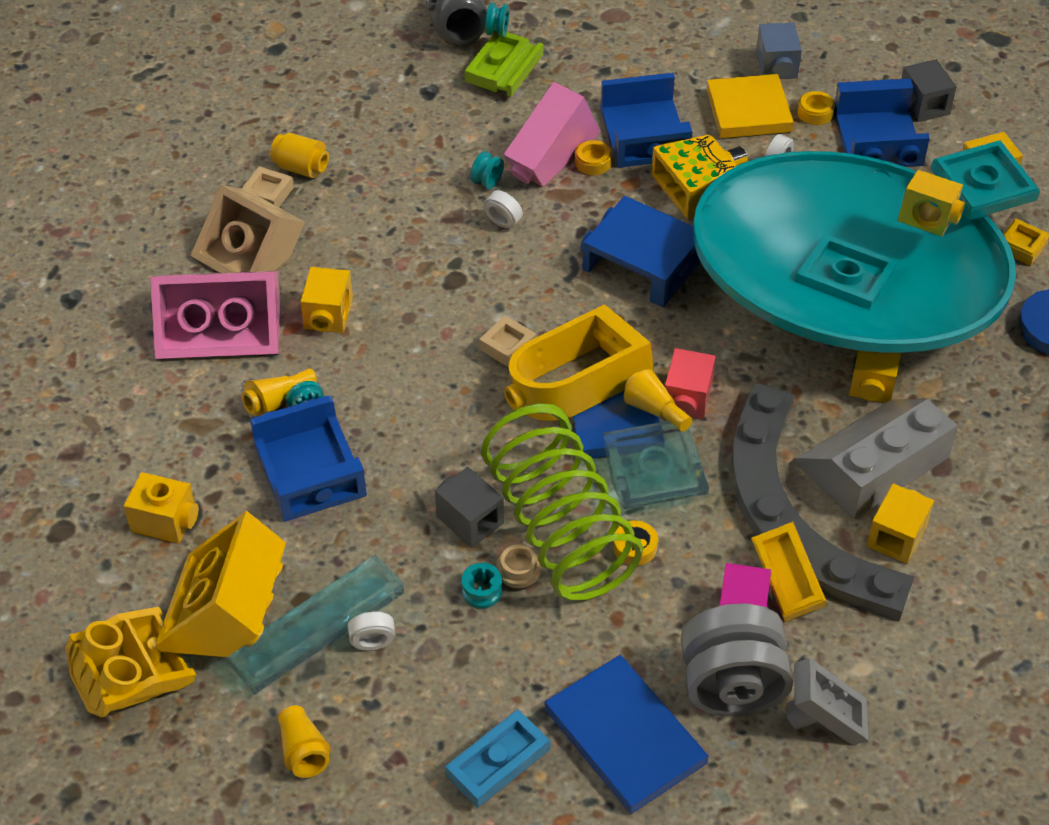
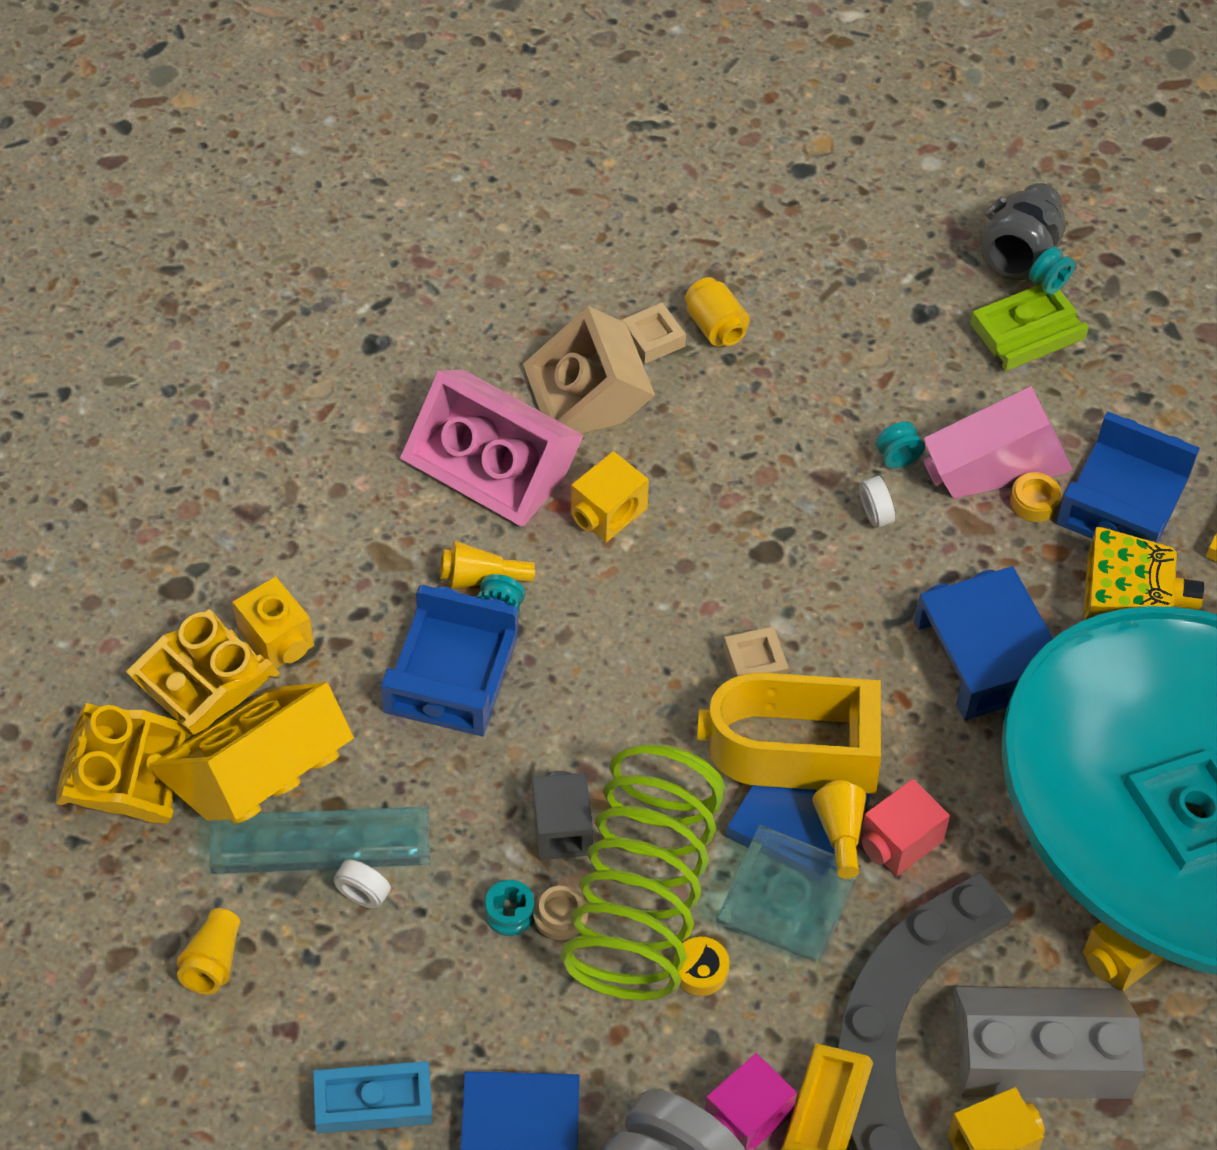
camera: 35 degrees right, 5 degrees up
(135, 566) = (200, 671): none -> yellow slope

